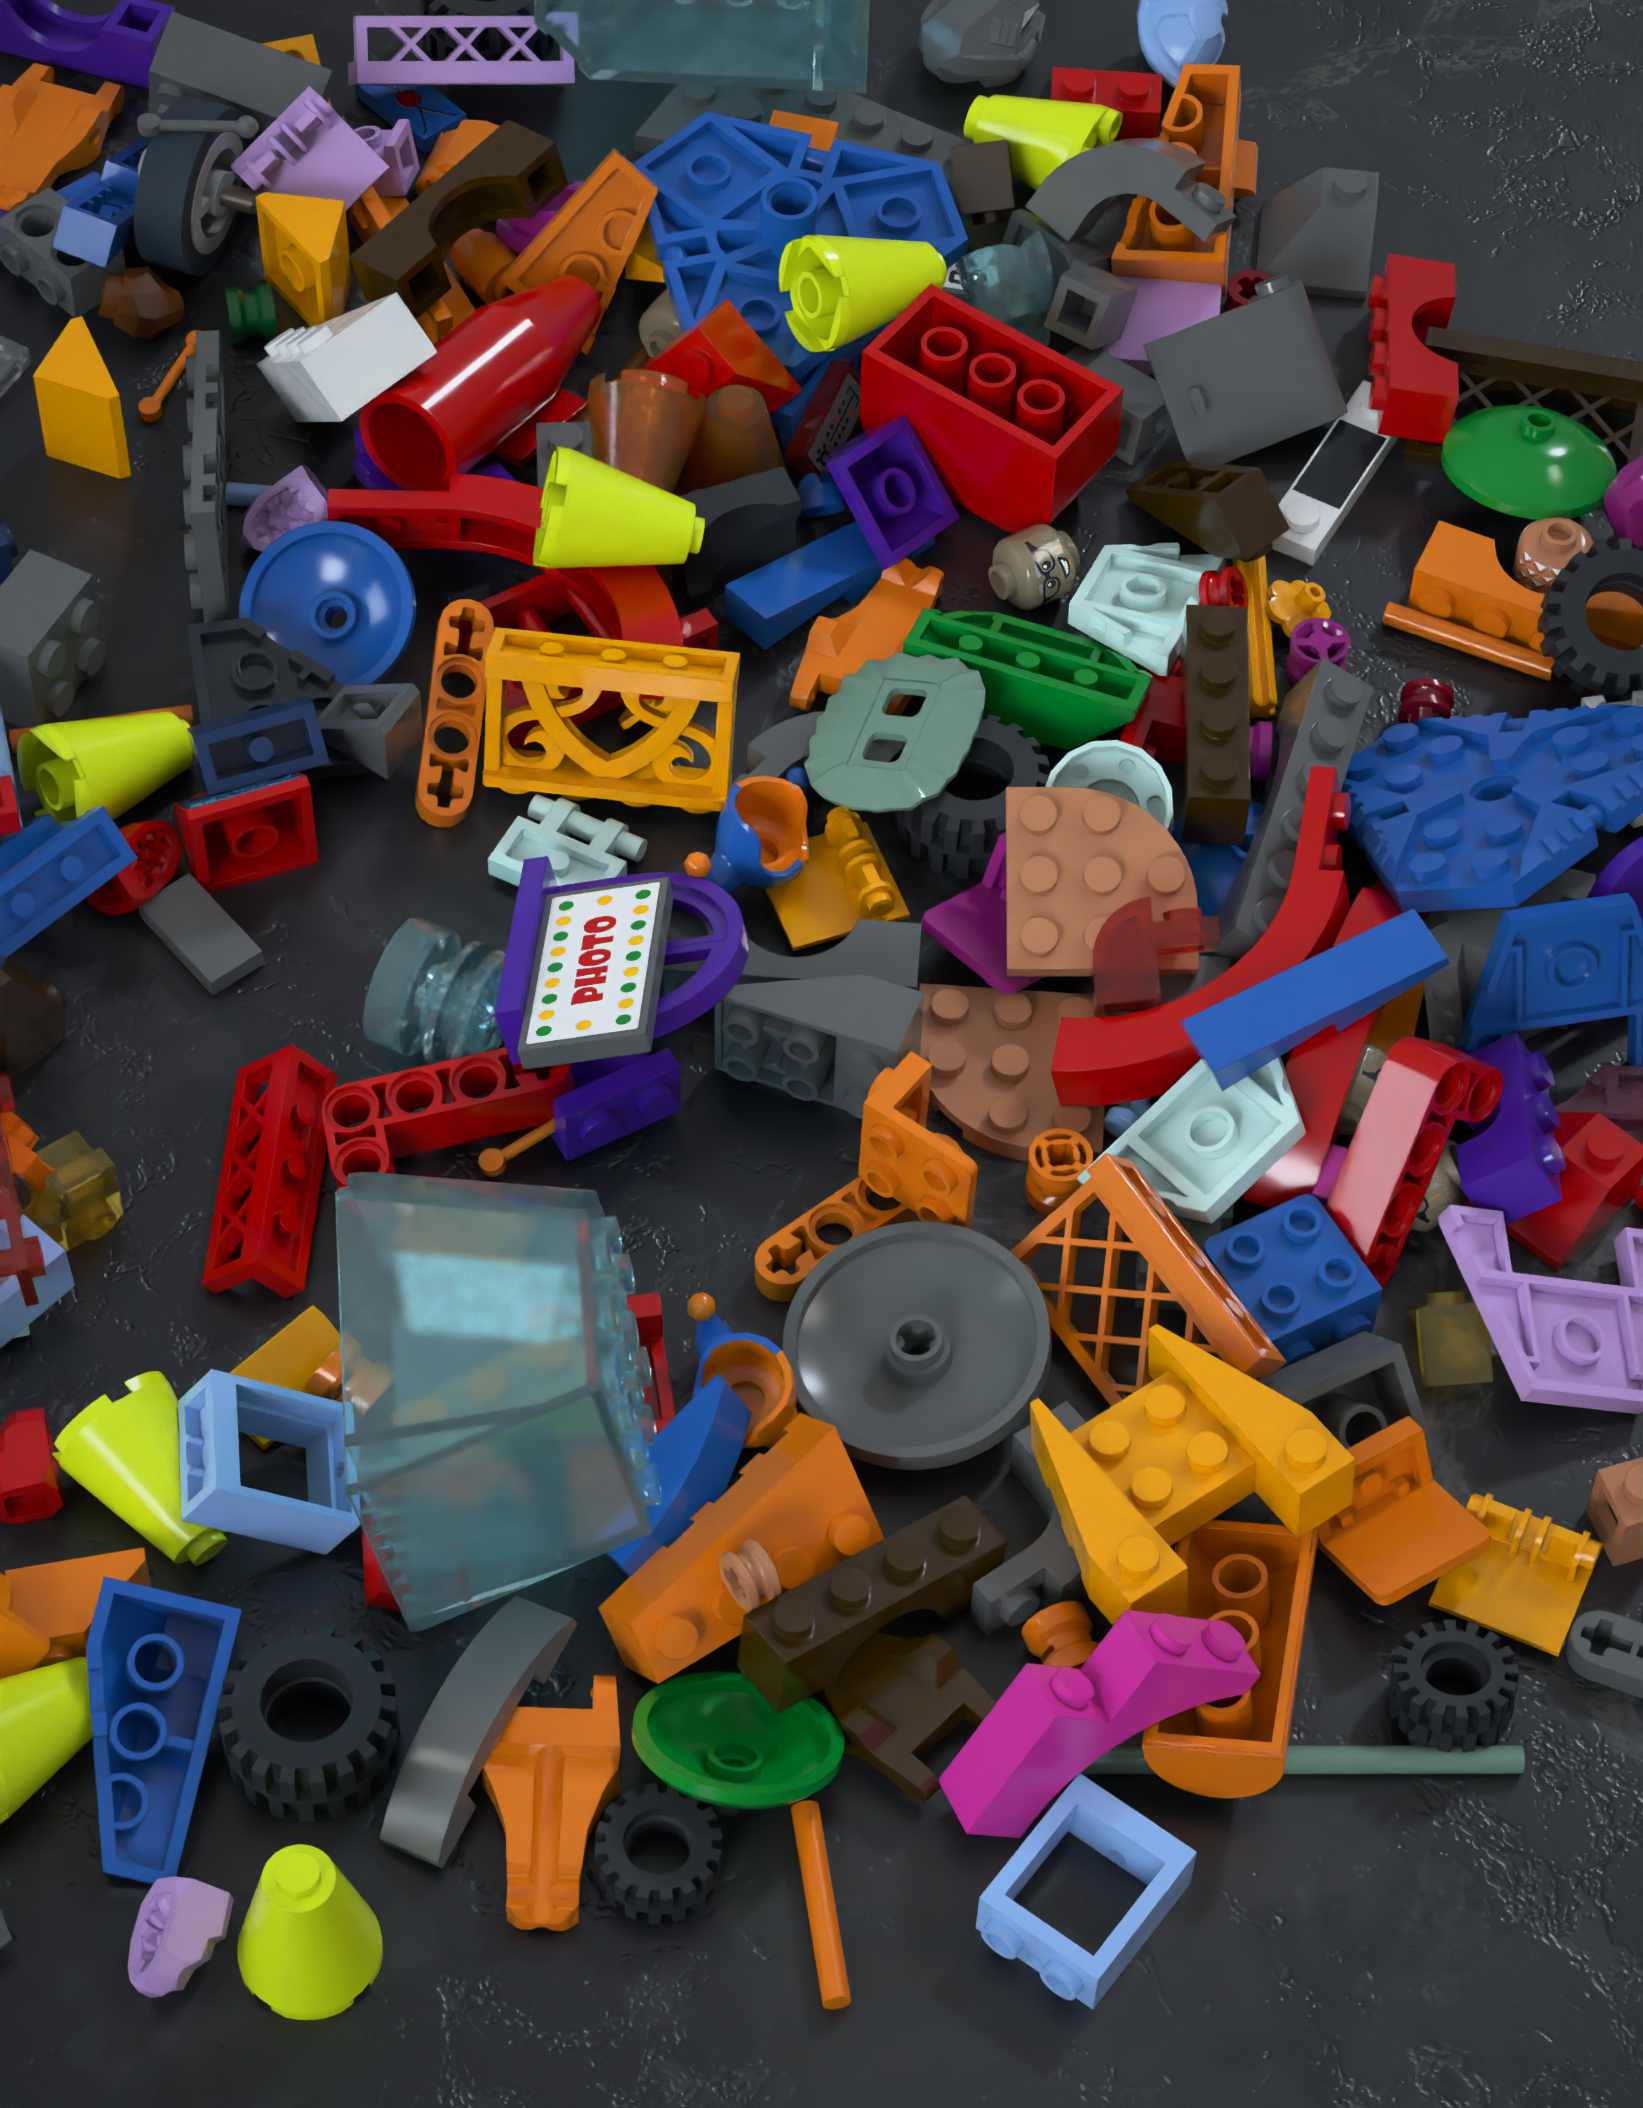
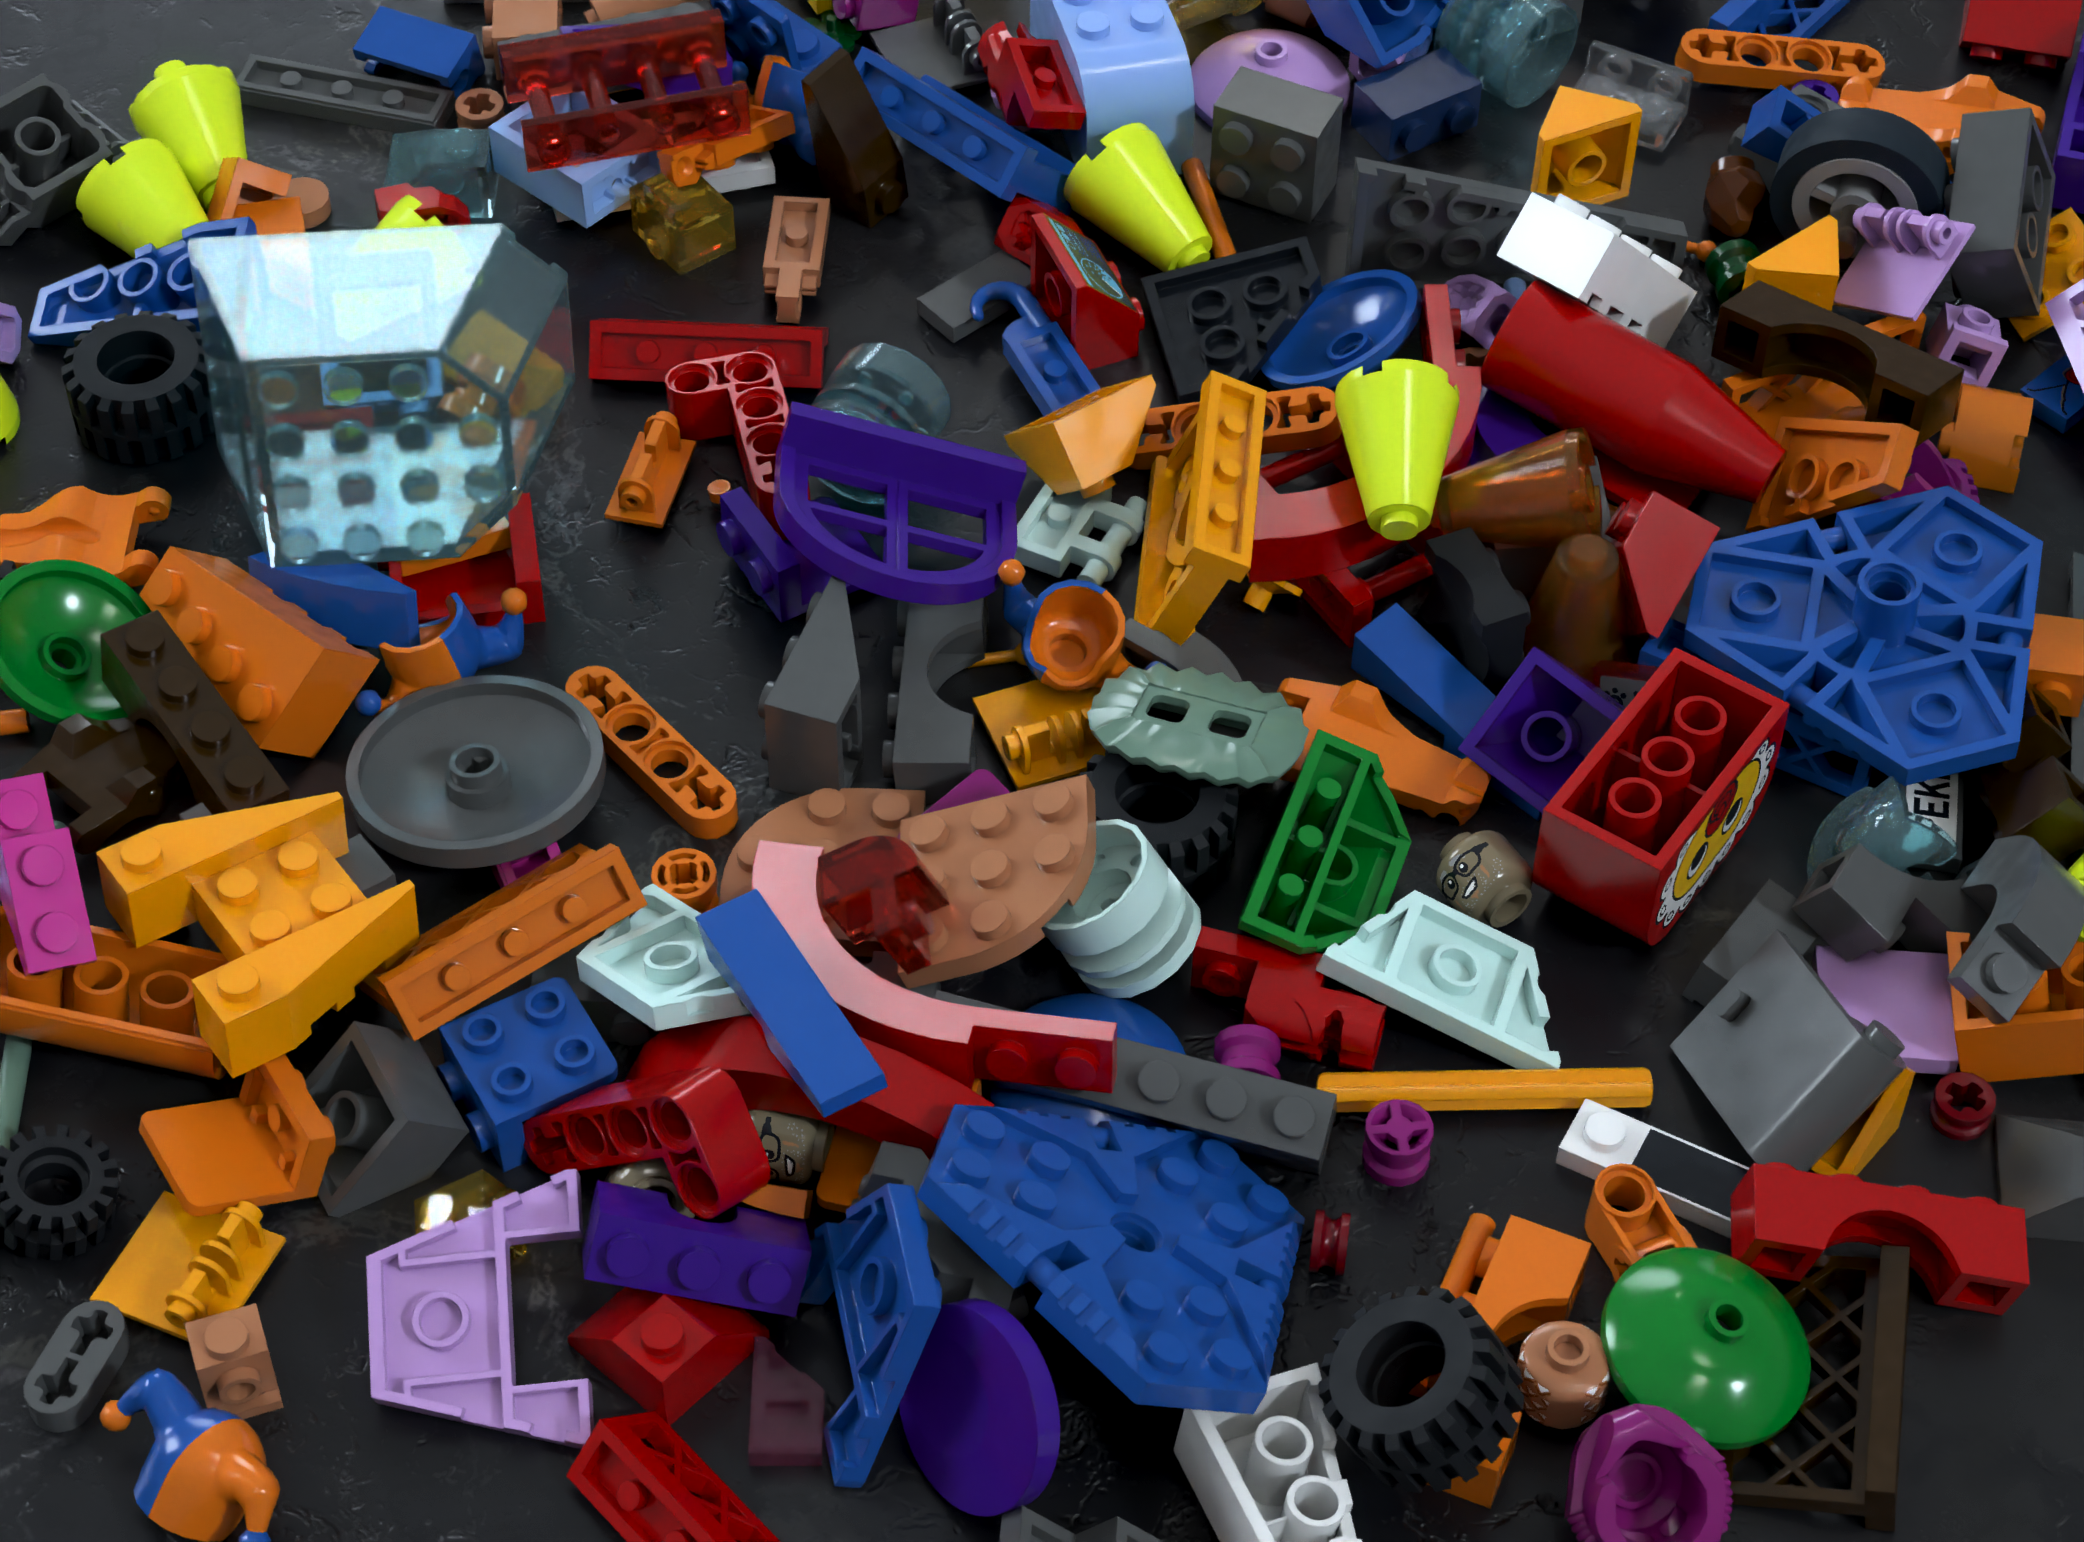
camera: 90 degrees right, 5 degrees down
(122, 1093) = (795, 252): none -> nougat hinge
(150, 125) = (1863, 101): dark grey hinge -> none
(258, 745) = (1150, 277): dark blue brick -> none
(327, 868) = (1037, 348): none -> blue plate
(374, 724) = (1184, 359): dark grey slope -> none
(464, 1725) = (177, 492): dark grey slope -> none
(474, 813) = (1087, 438): none -> light orange slope
(596, 974) = (854, 482): tile -> none
(749, 1575) = (189, 605): nougat bush -> none
(852, 285) = (1776, 641): neon yellow cone -> none
(904, 1157) = (672, 720): orange bracket -> none
(1214, 506) = (1578, 1025): dark brown slope -> none
(1216, 725) = (1299, 982): dark brown arch -> none
(1223, 589) = (1465, 1057): red bush -> none
(1295, 603) = (1461, 1147): light orange plant -> none
(1401, 507) = (1631, 1235): none -> orange piece

